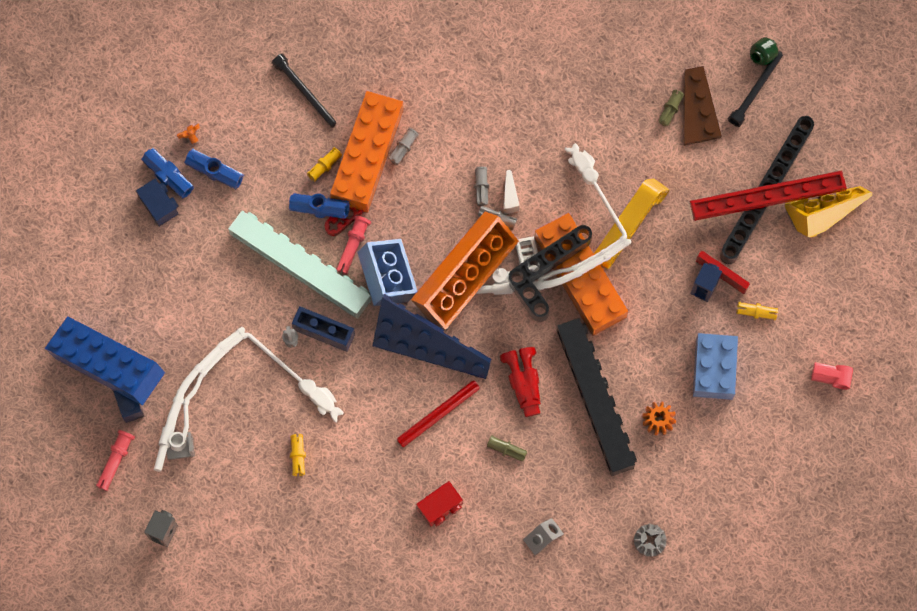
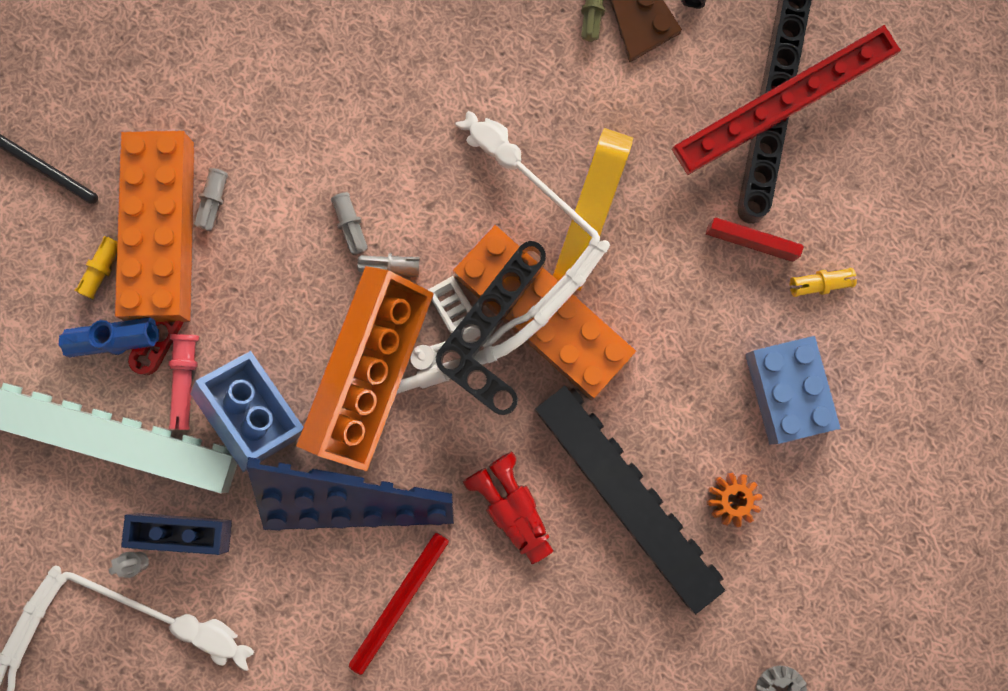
camera: 20 degrees left, 10 degrees up
(506, 448) = (521, 623): olive axle -> none
(511, 202) = (398, 228): white slope -> none
(706, 282) = (738, 264): dark blue brick -> none
(820, 214) = (868, 102): yellow wedge -> none
(838, 376) = (974, 343): coral piece -> none

